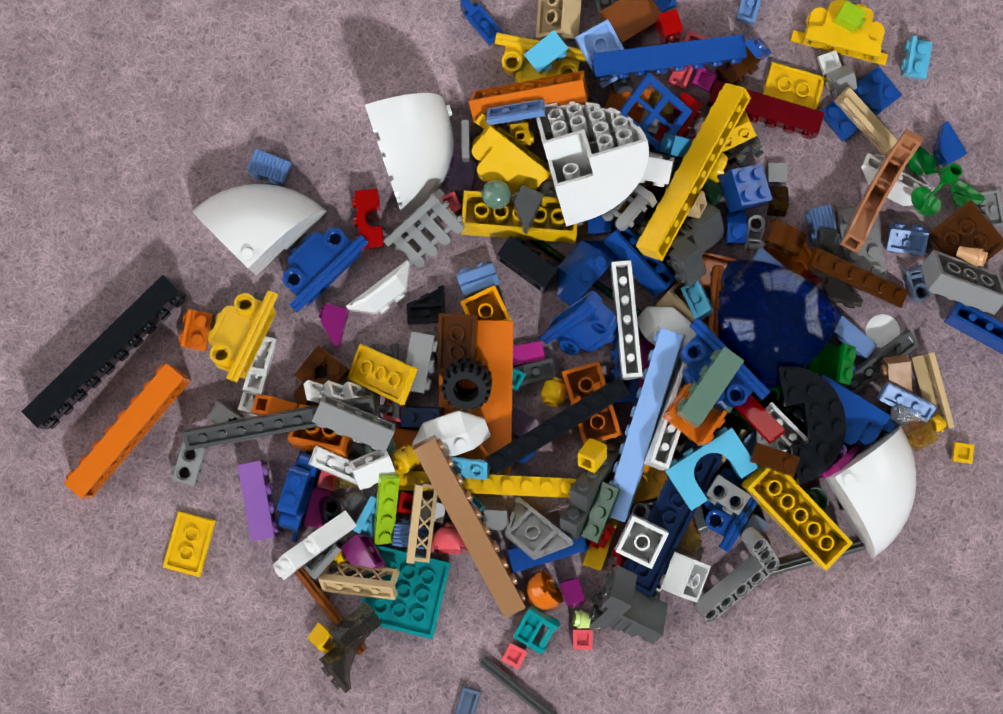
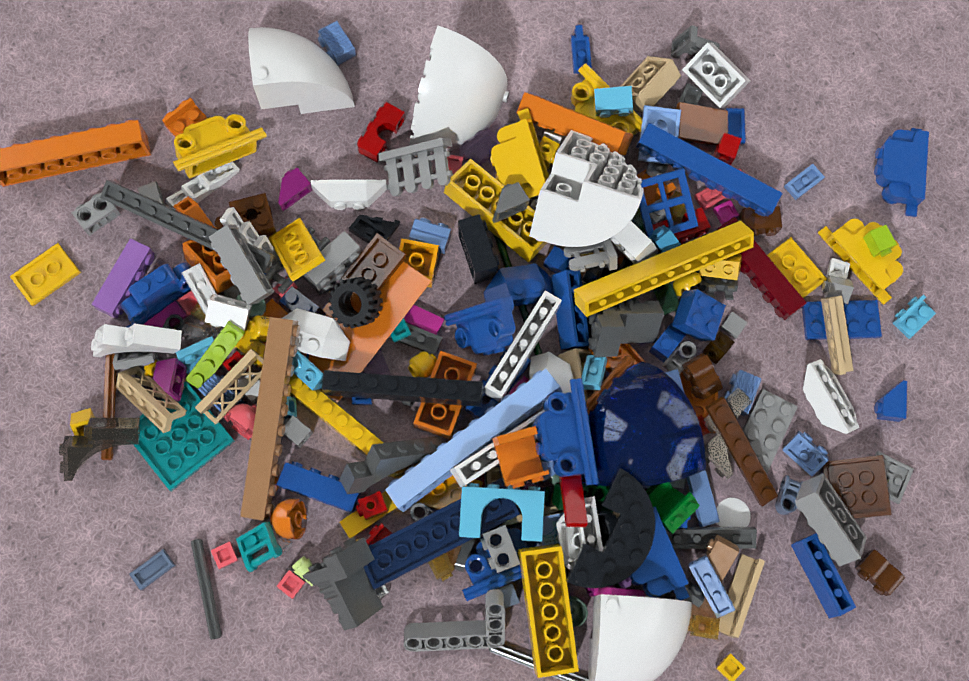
camera: 30 degrees right, 10 degrees down
(104, 353) = (100, 84): black brick -> none
(319, 264) = (316, 137): blue brick -> none
(465, 140) = (503, 119): light grey tile -> none
(496, 194) = (492, 176): sand green hair -> none
(515, 112) = (554, 122): medium blue tile -> none
(534, 532) = (318, 463): light grey wing -> none
(572, 592) = (312, 538): magenta brick -> none
(592, 455) = (412, 432): yellow brick -> none
(600, 512) = (384, 485): plate -> none
(641, 541) = (398, 532): white brick -> none
(685, 577) = (414, 594): white brick -> none
(698, 206) = (648, 297): tan slope -> none
(709, 387) = (548, 438): sand green brick -> none
(758, 48) = (786, 215): blue plate -> none
(774, 459) = (560, 543): reddish brown slope -> none
(879, 189) = (811, 390): nougat arch -> none
(902, 413) = (702, 593): clear cone -> none
(924, 200) = (843, 429): green plant -> none
(938, 423) = (726, 625): yellow plate -> none
(972, 255) = (854, 504): light nougat cone -> none

